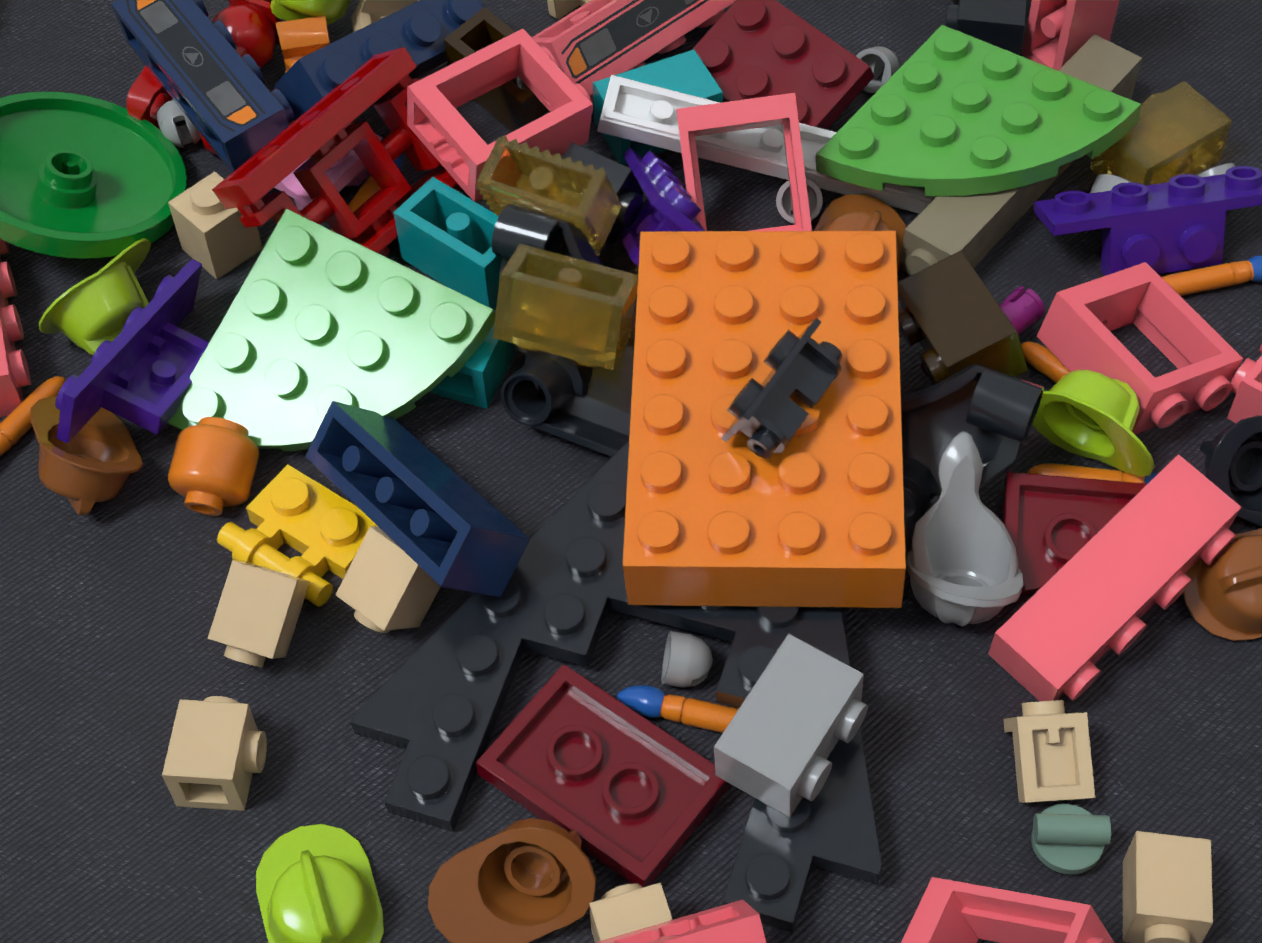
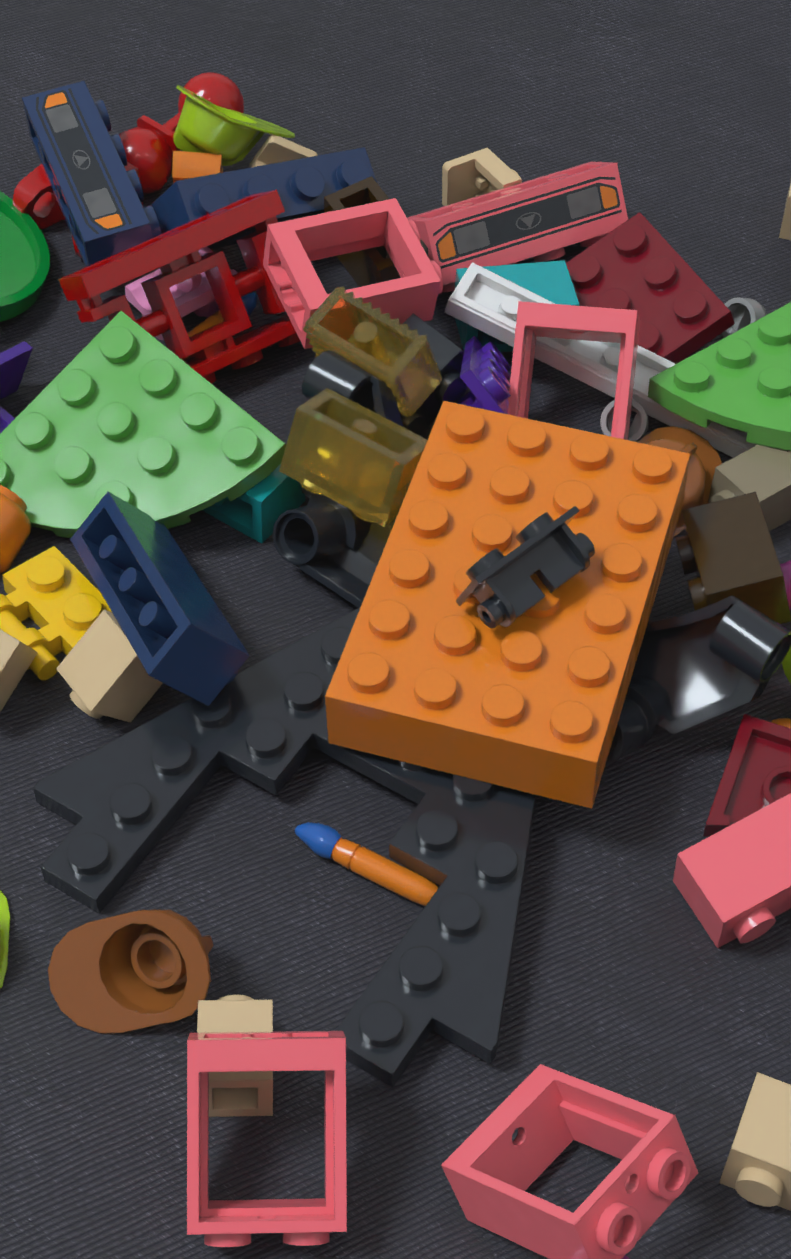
camera: 10 degrees right, 5 degrees down
(178, 135) = (54, 236): light grey hinge -> none
(210, 231) = (53, 322): tan brick -> none
(450, 240) = (267, 374): teal brick -> none
(605, 774) = (258, 894): dark red plate -> none
(685, 660) = (372, 812): light grey hinge -> none
(790, 726) = (443, 886): light grey brick -> none
(961, 551) = (670, 771): light grey piece -> none
(1051, 753) = (701, 984): tan bracket -> none
(1069, 838) = (694, 1069): sand green plate -> none

